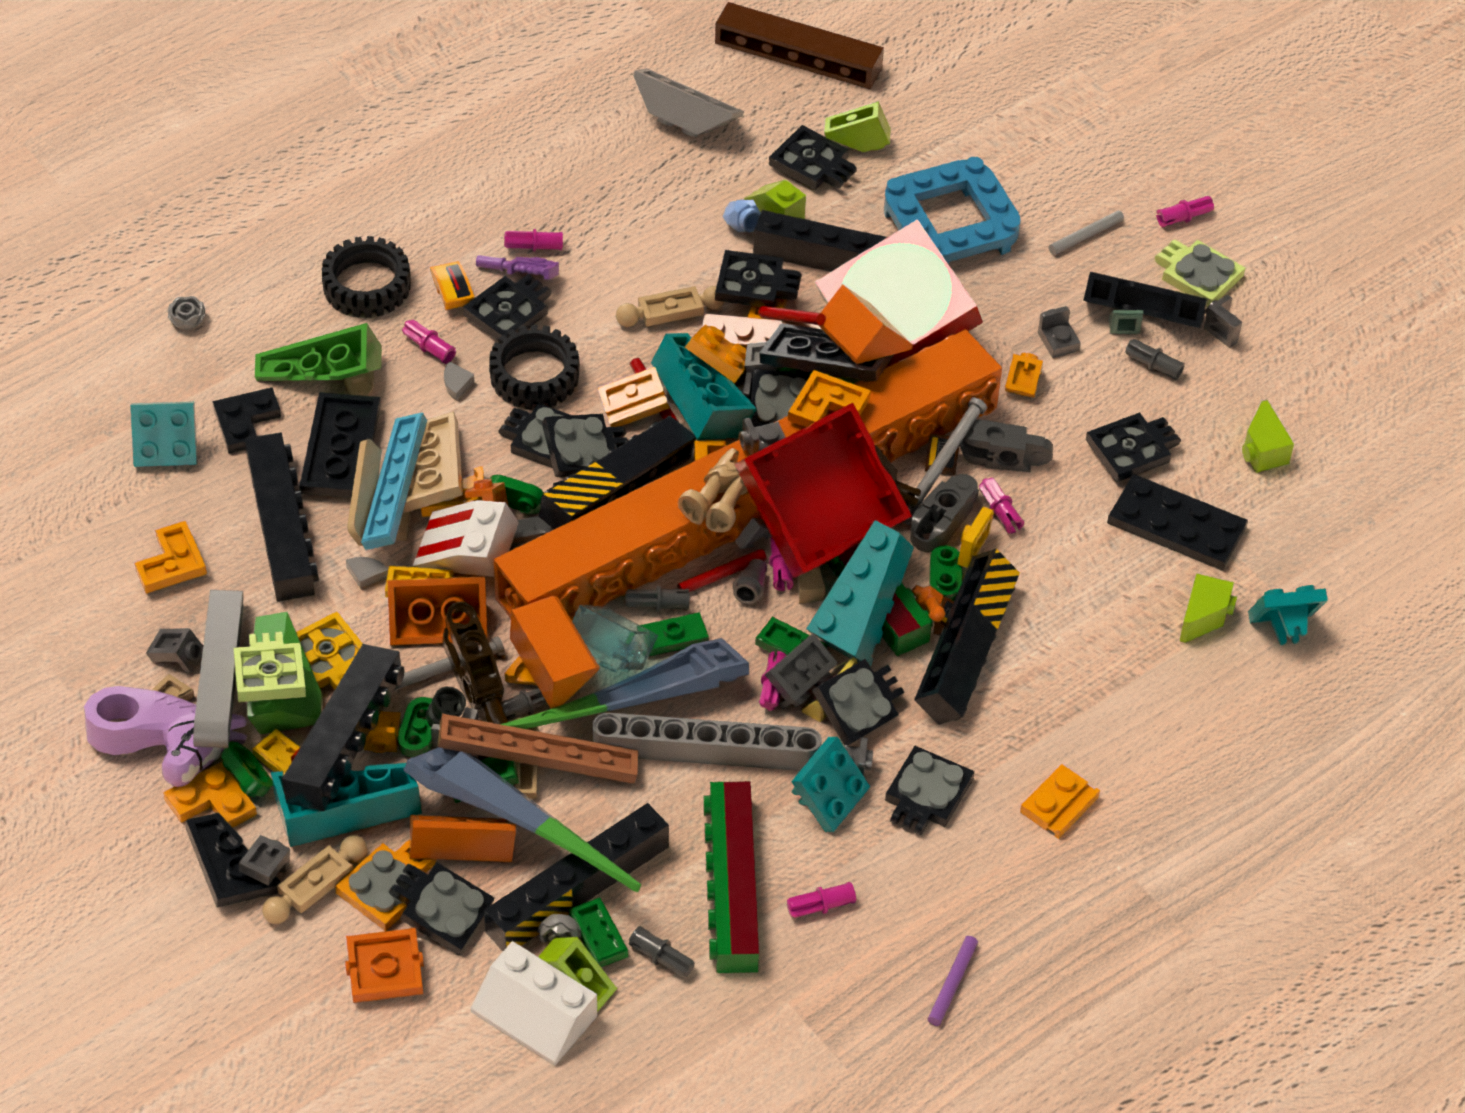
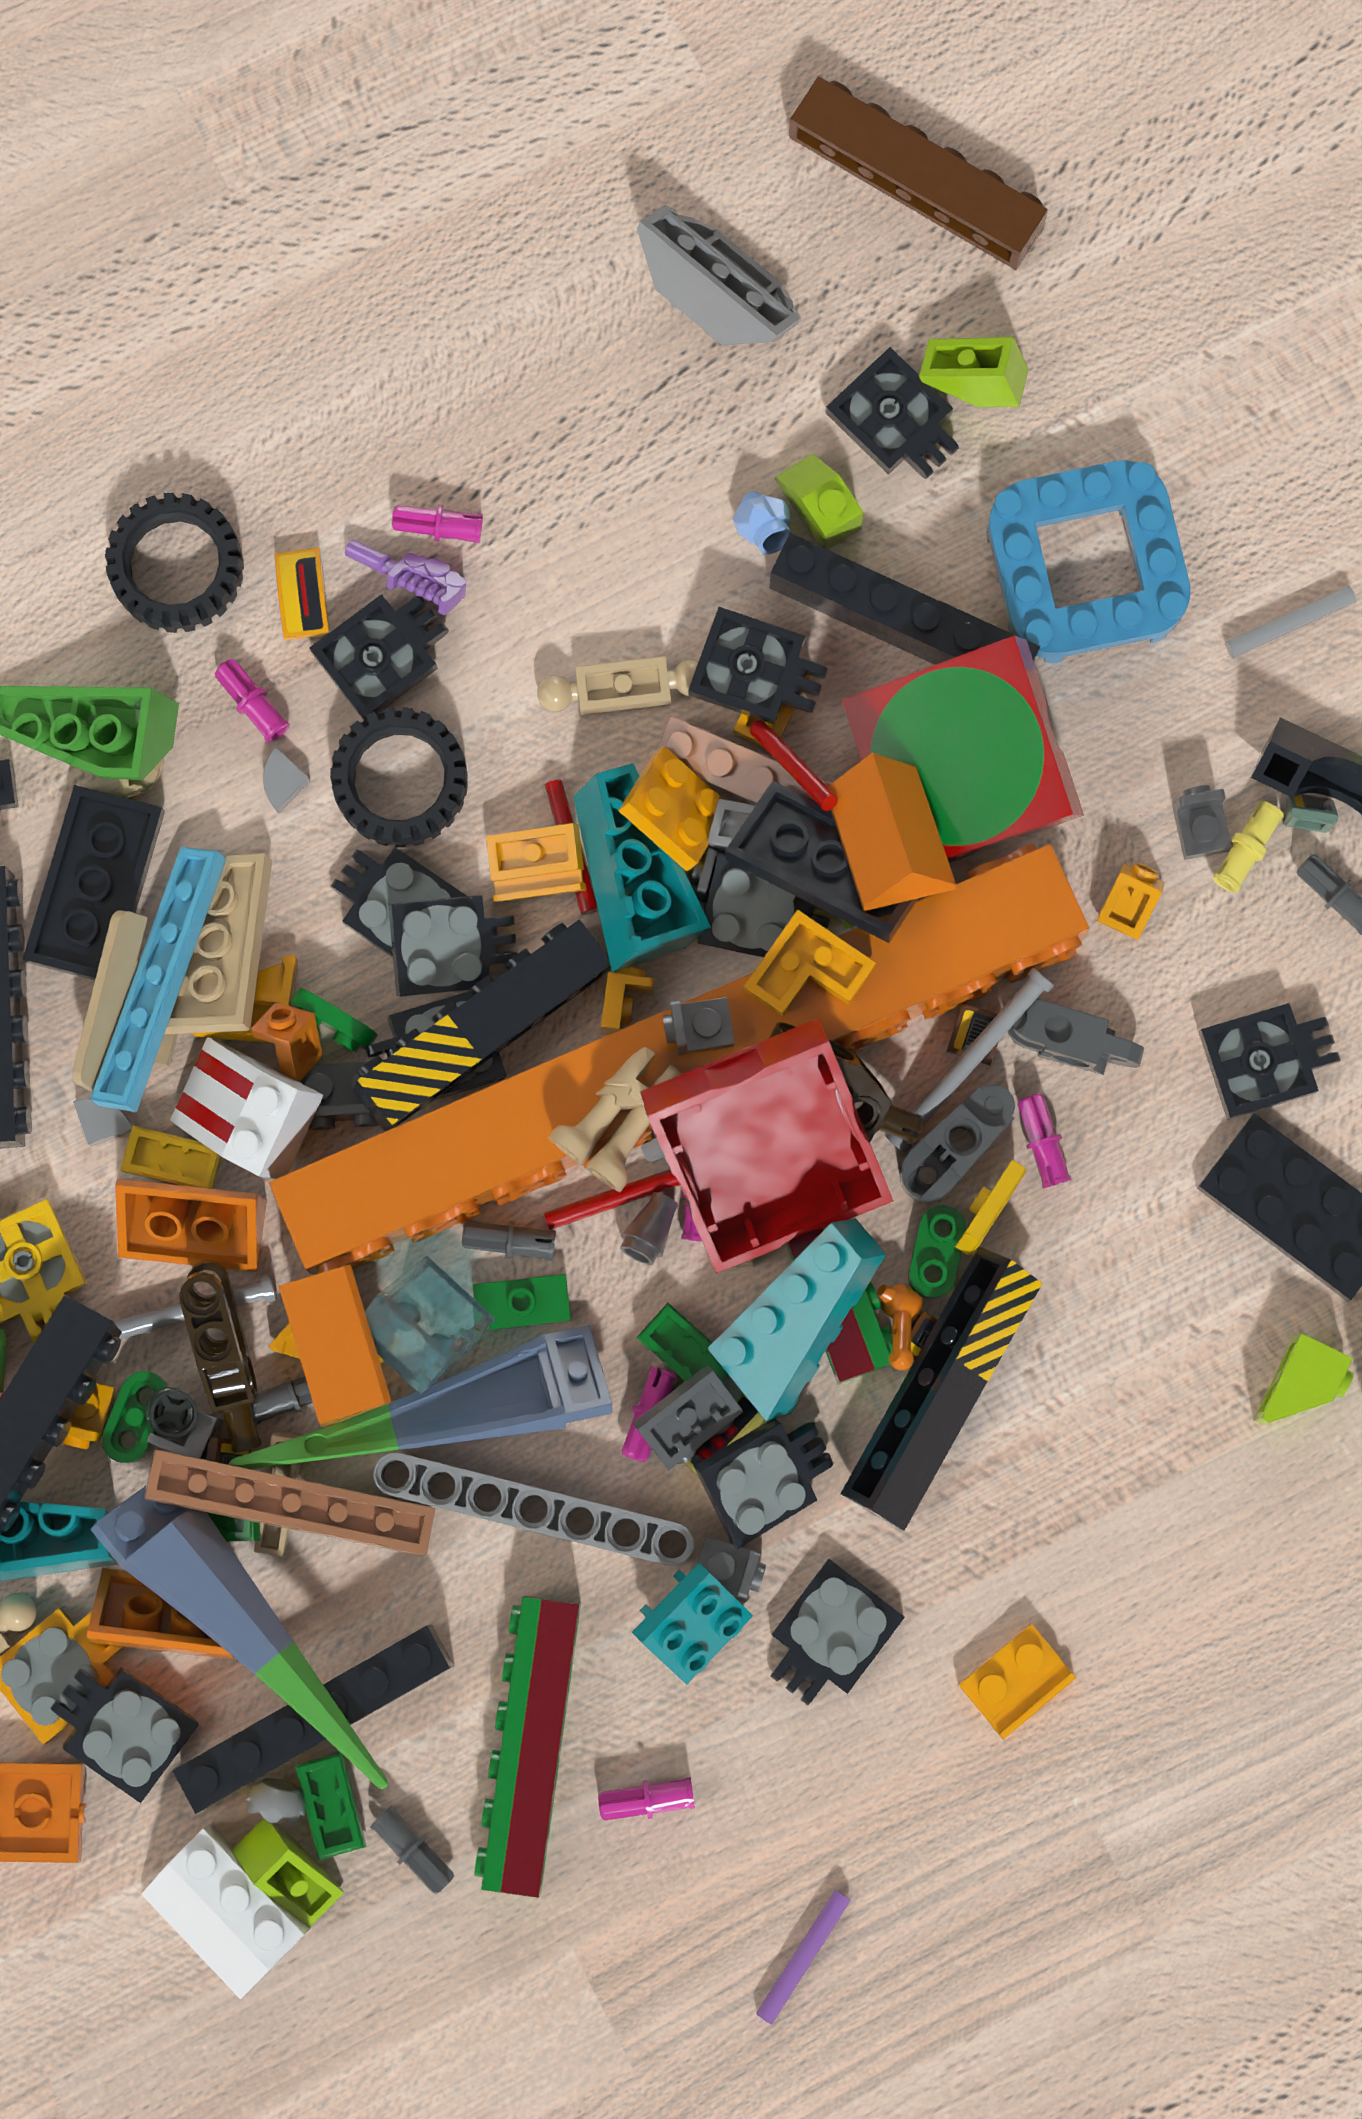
camera: 15 degrees right, 30 degrees up
(1091, 341) = (1248, 846): none -> light yellow pin

